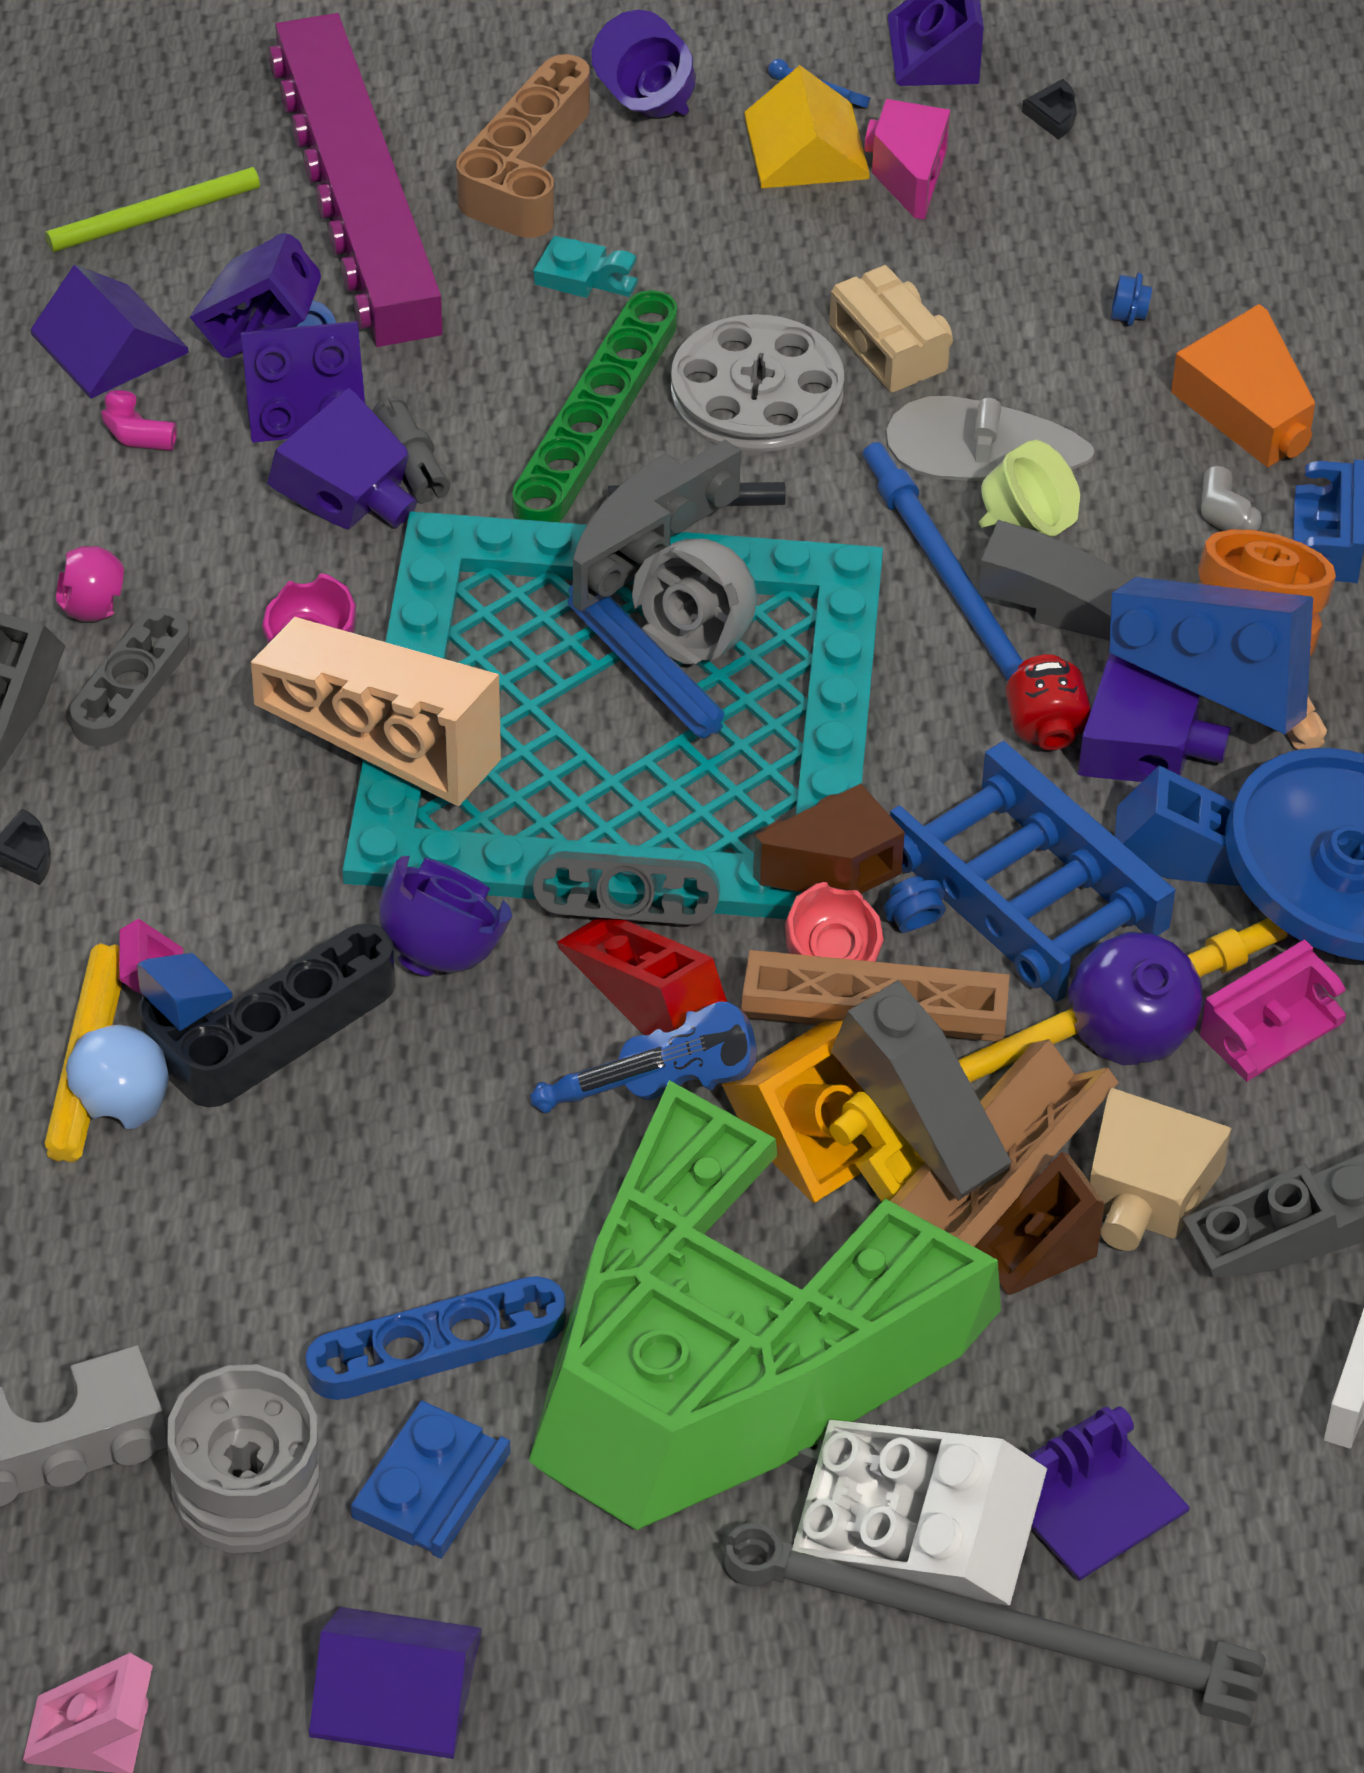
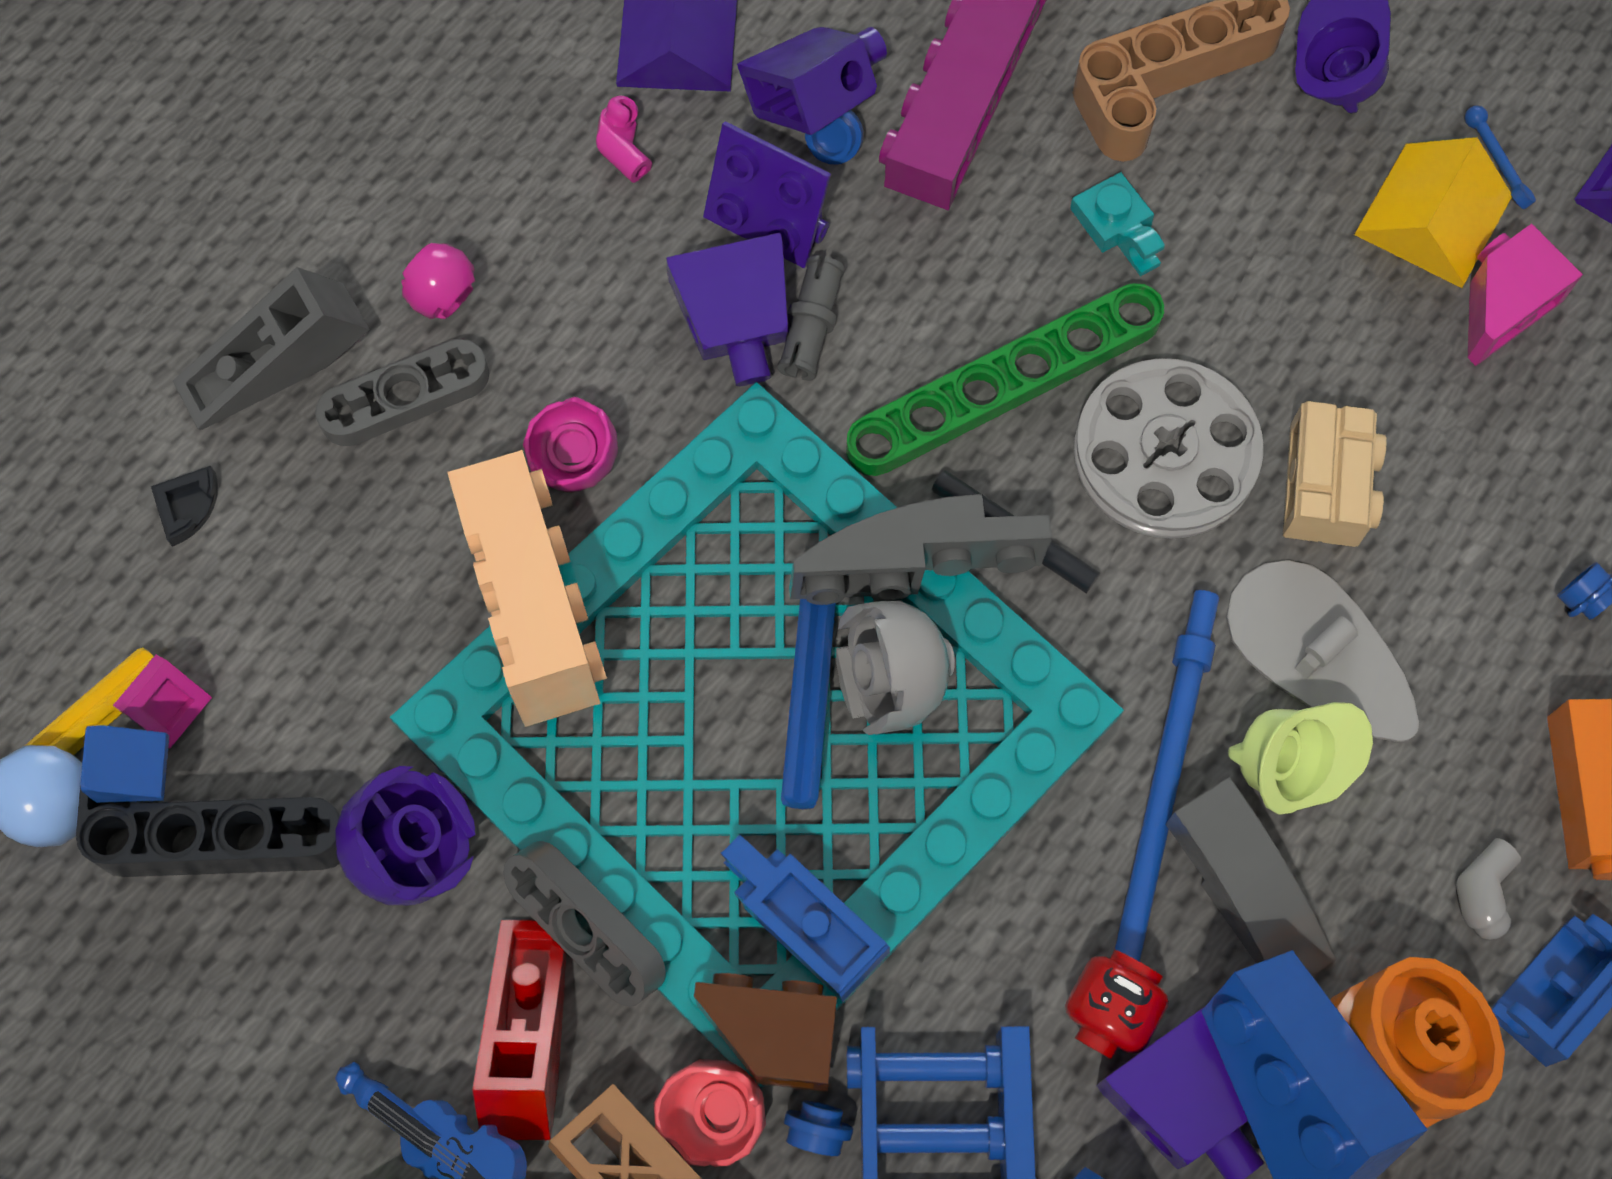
camera: 40 degrees right, 20 degrees up
(777, 775) = (805, 917): none -> blue hinge

